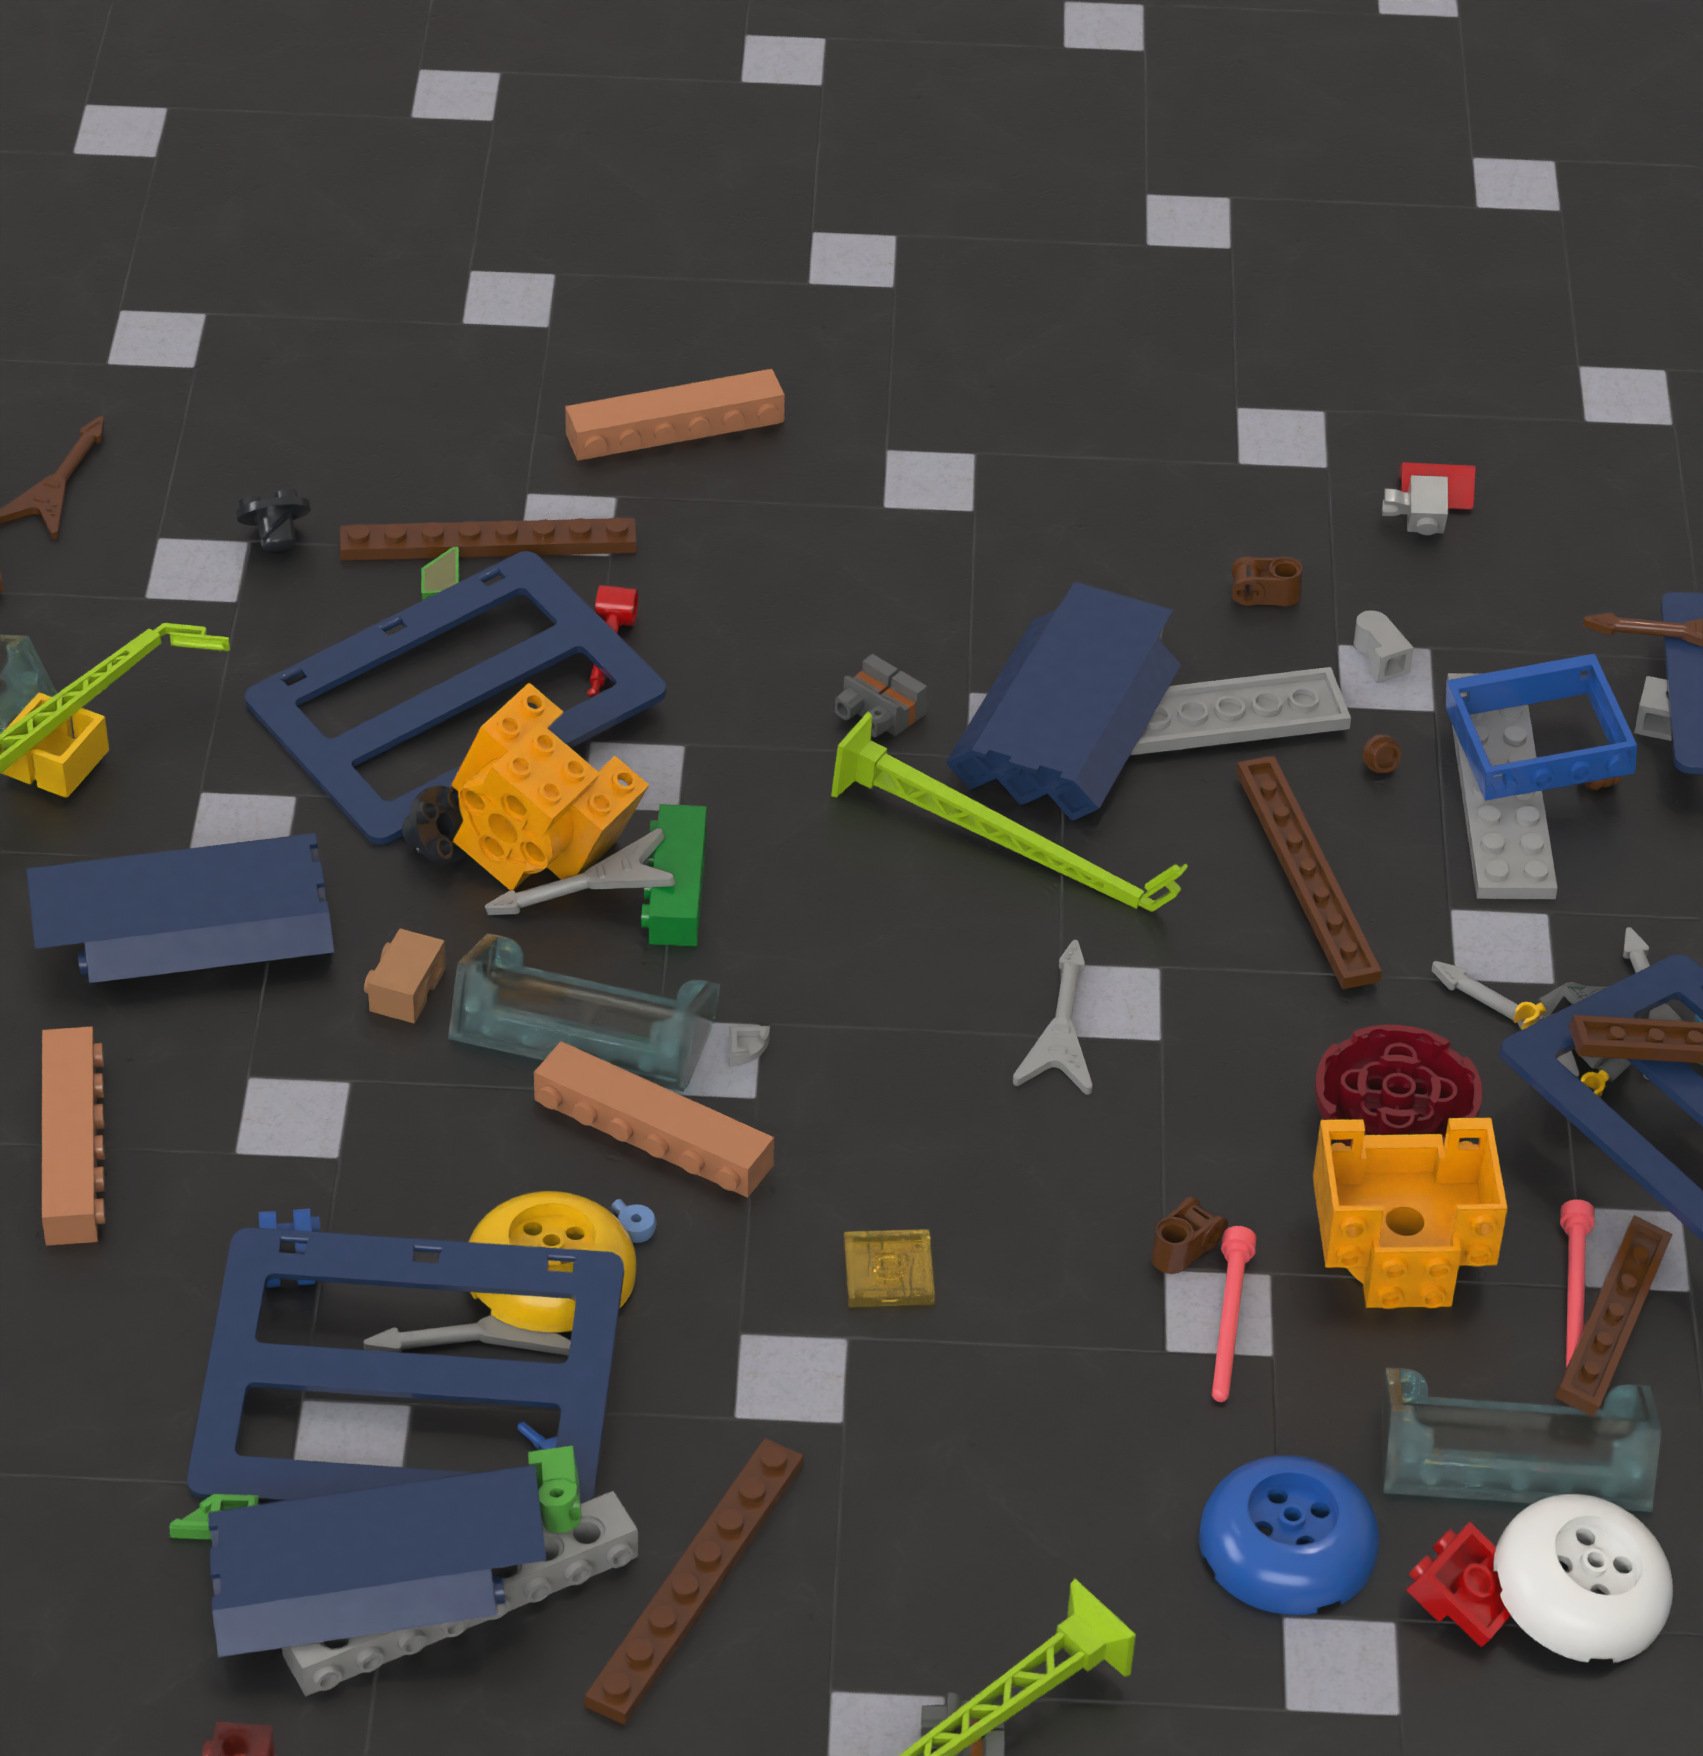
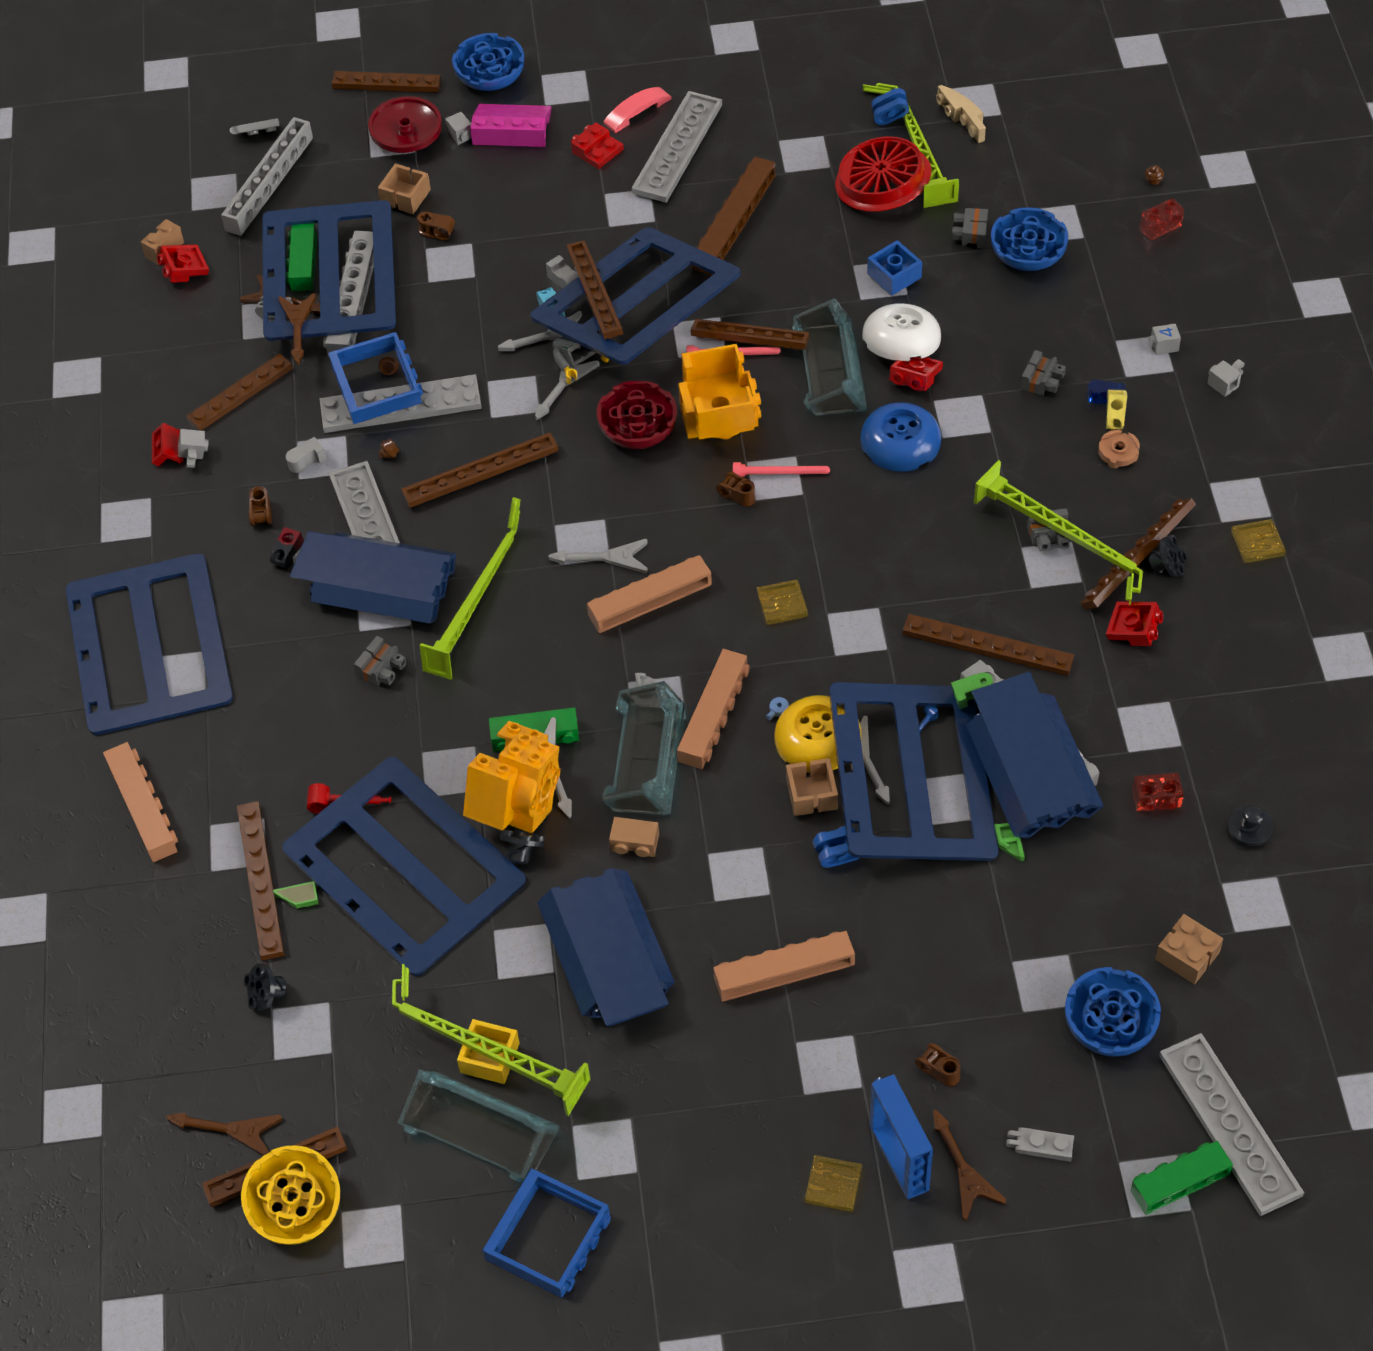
camera: 95 degrees left, 10 degrees up
(422, 1207) = (814, 791): none -> medium nougat piece
(867, 454) = (159, 703): none -> dark blue door
(949, 1068) = (649, 593): none -> nougat brick
(1183, 602) = (286, 547): none -> leg
(1552, 576) = (239, 392): none -> reddish brown plate

